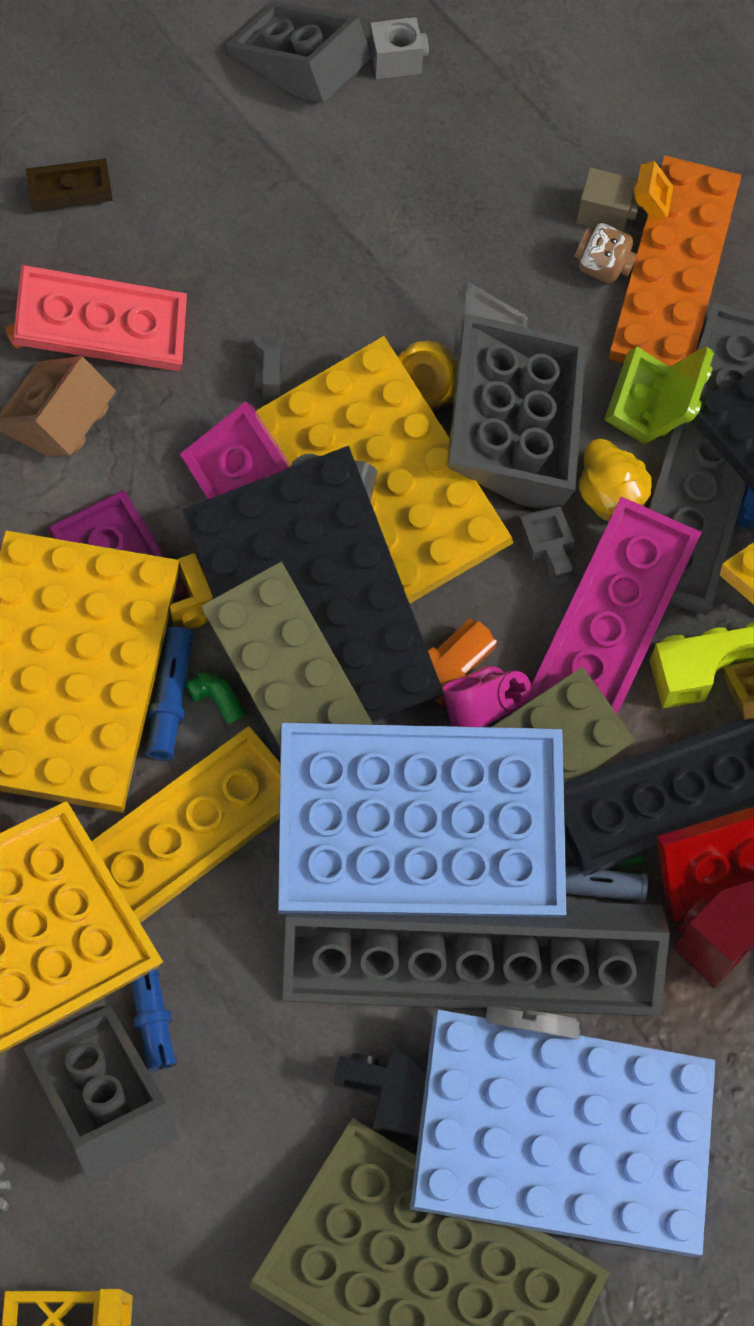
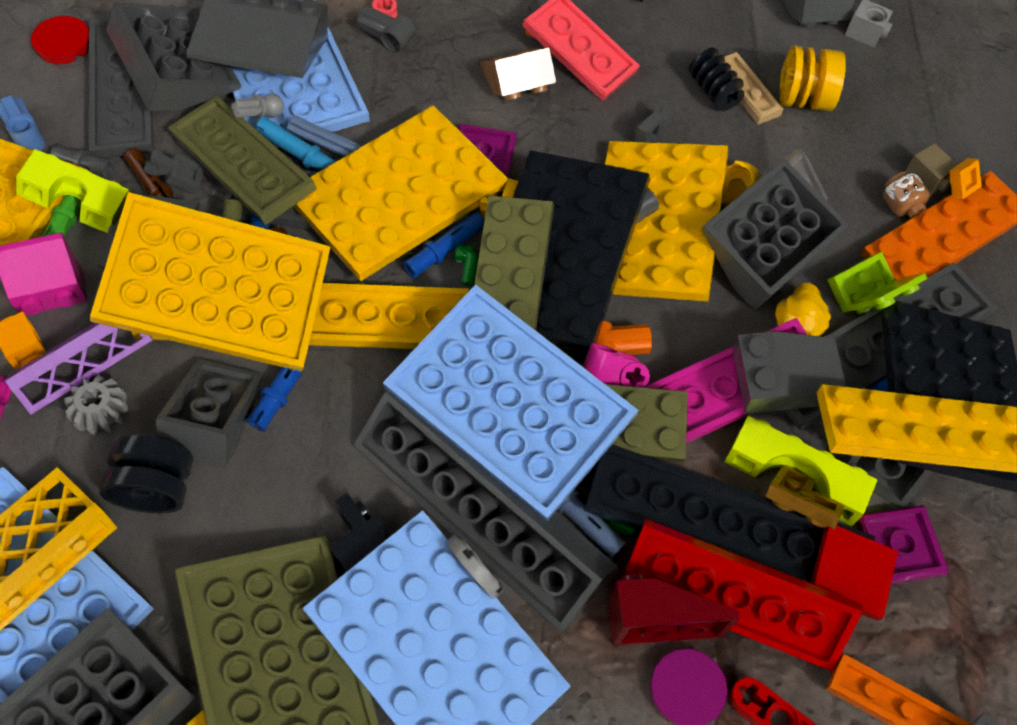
camera: 40 degrees right, 5 degrees down
(114, 1215) = (146, 474): none -> black wheel
(234, 453) = (593, 146): dark pink plate -> none
(290, 251) = (717, 79): none -> black piece
(327, 233) = (757, 98): none -> tan tile
(400, 176) = (812, 78): none -> yellow wheel
(550, 538) = (735, 318): dark grey plate -> none
(662, 567) = (784, 370): none -> dark grey slope

